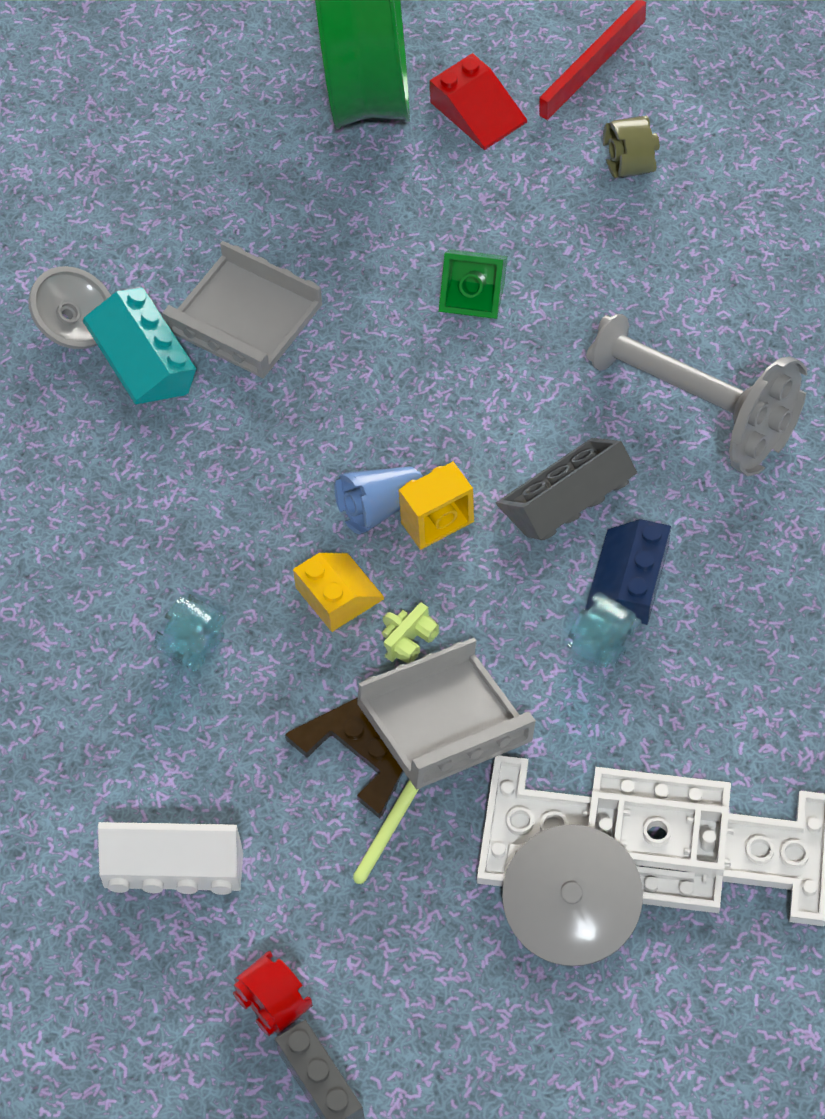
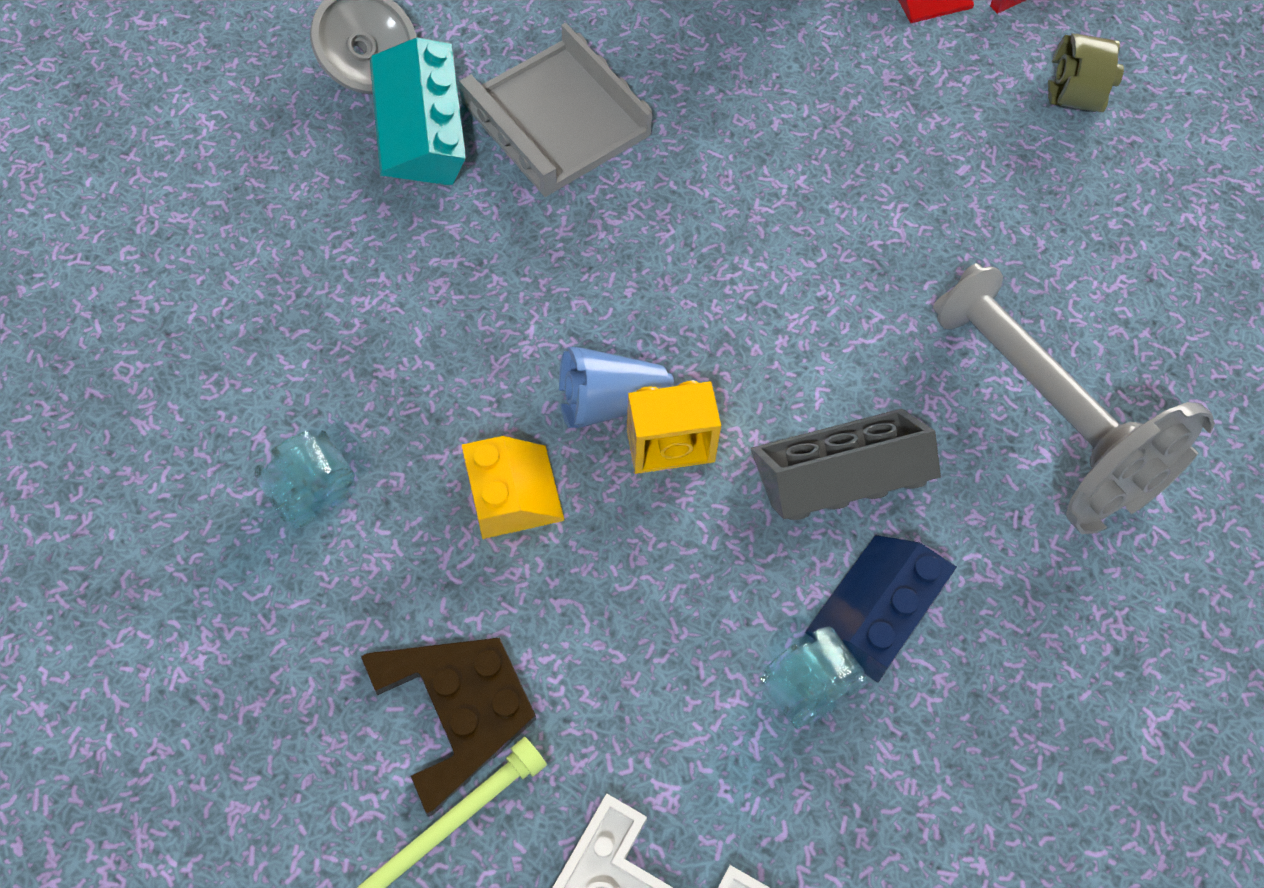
camera: 15 degrees right, 5 degrees up
(170, 857) = (134, 774): white slope -> none
(402, 630) = (565, 573): yellowish green hips -> none
(443, 714) = (562, 713): light grey panel -> none
(472, 283) = (832, 169): green slope -> none

